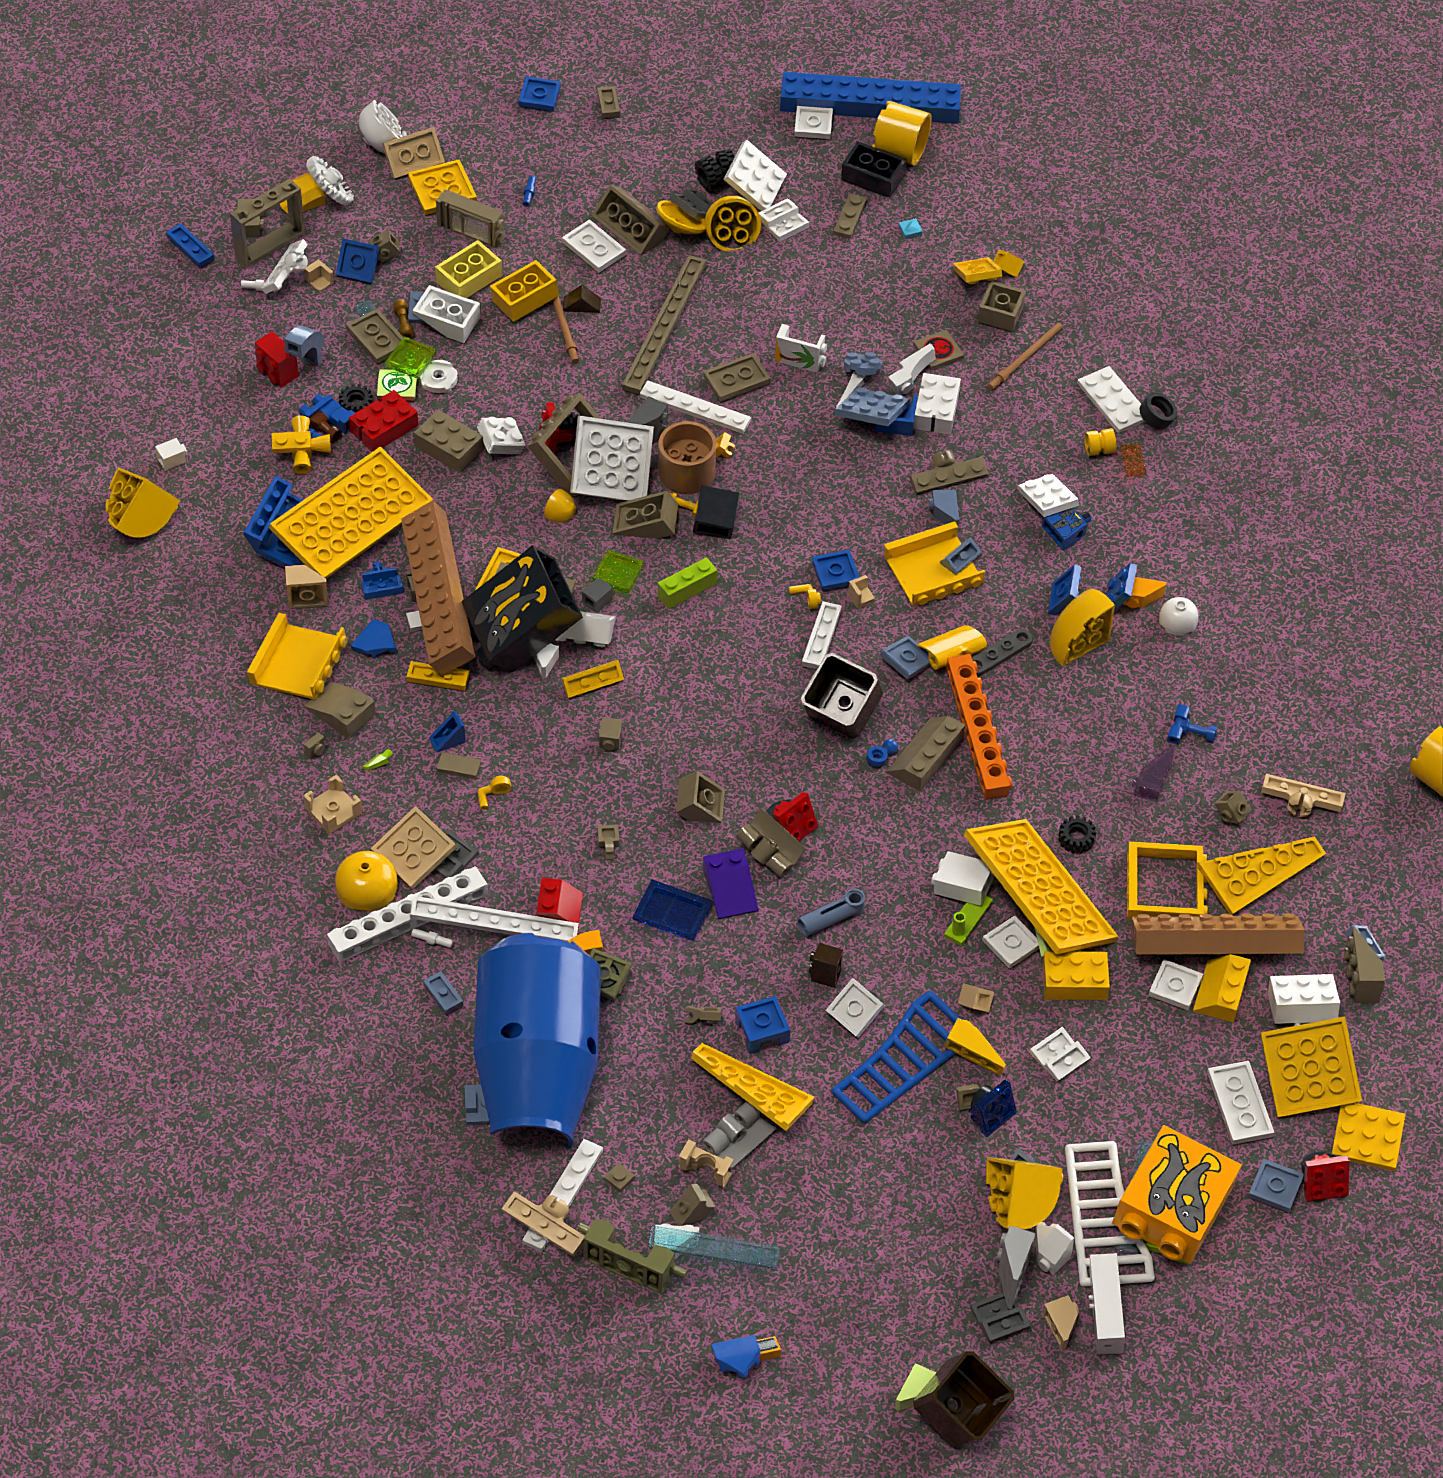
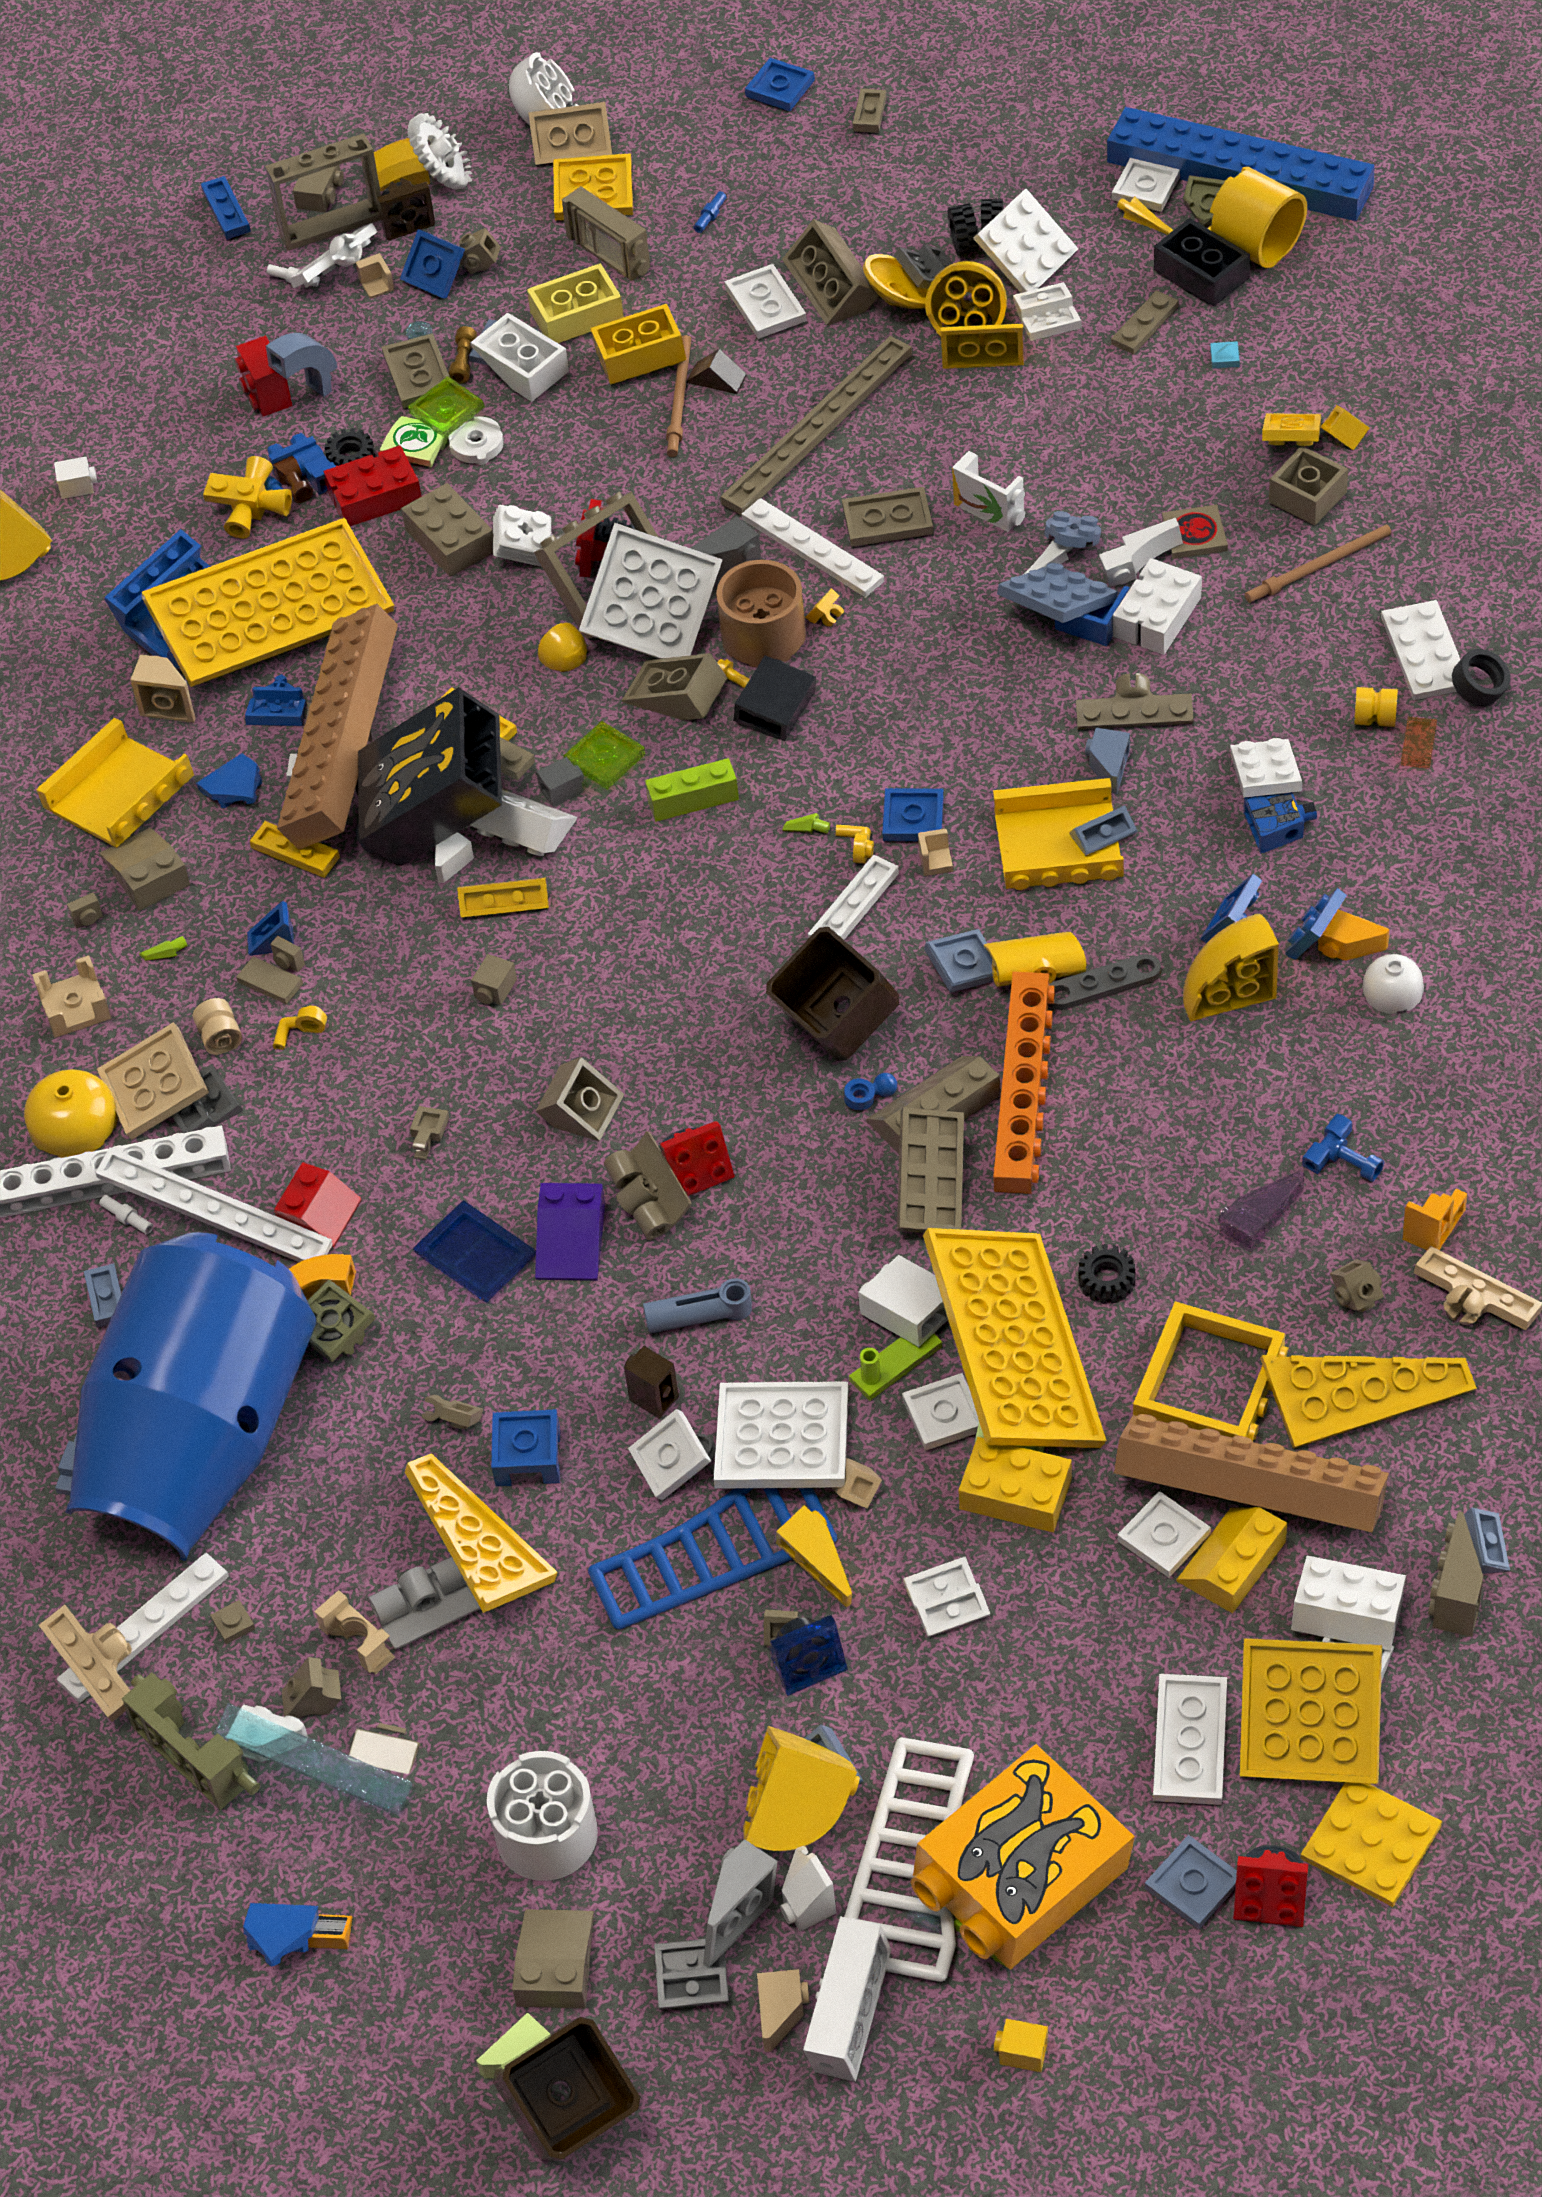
camera: 25 degrees right, 0 degrees up
(322, 224) = (403, 208): none -> dark brown piece
(440, 802) = (217, 1026): none -> tan wheel
(465, 746) = (287, 954): none -> dark tan plate
(751, 1231) = (385, 1750): none -> piece
(753, 250) = (982, 346): none -> yellow slope
(769, 590) = (807, 824): none -> lime bar
(816, 142) = (1140, 214): none -> yellow piece
(859, 124) = (1199, 197): none -> olive plate
(875, 1244) = (546, 1840): none -> white brick
(913, 1329) = (553, 1959): none -> dark tan slope
(920, 979) = (781, 1435): none -> white plate
(946, 794) = (930, 1170): none -> dark tan plate
(1215, 1305) = (1022, 2045): none -> yellow brick
(1261, 757) = (1434, 1221): none -> light orange panel

